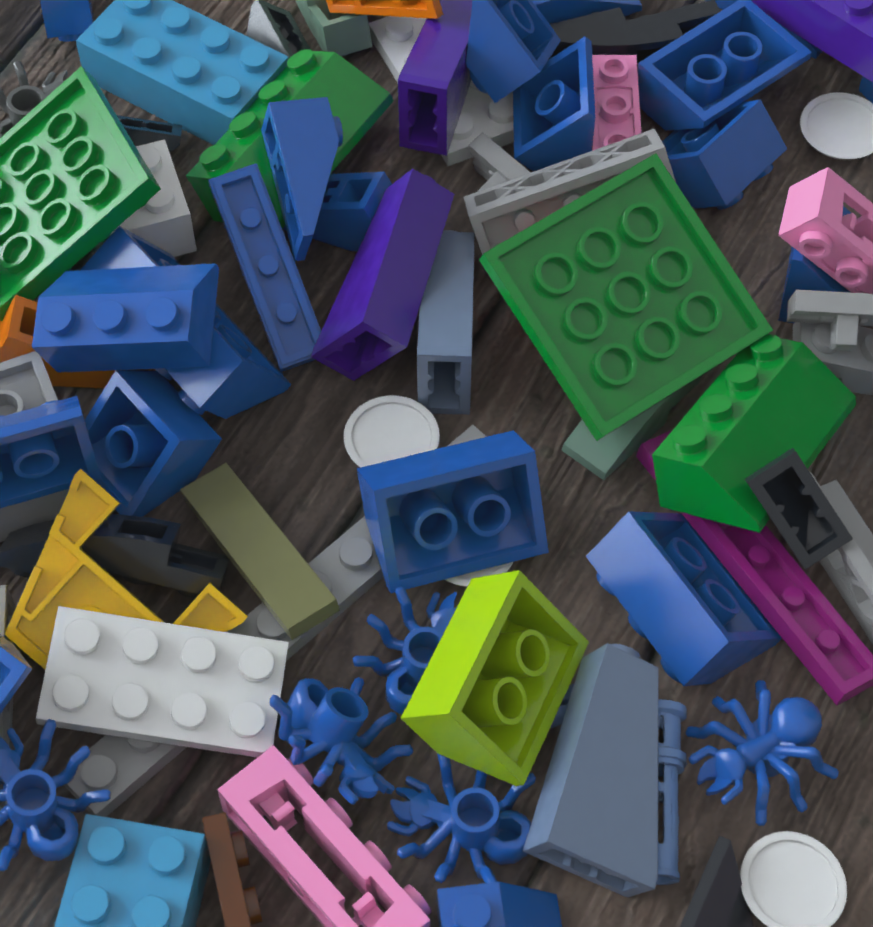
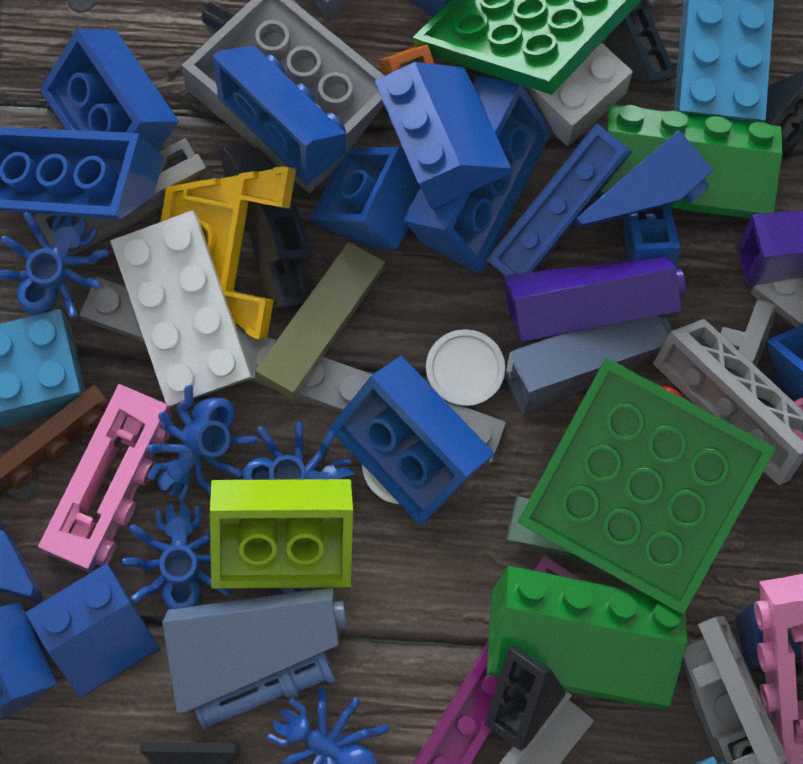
camera: 65 degrees right, 15 degrees up
(680, 597) = (427, 640): blue slope -> none

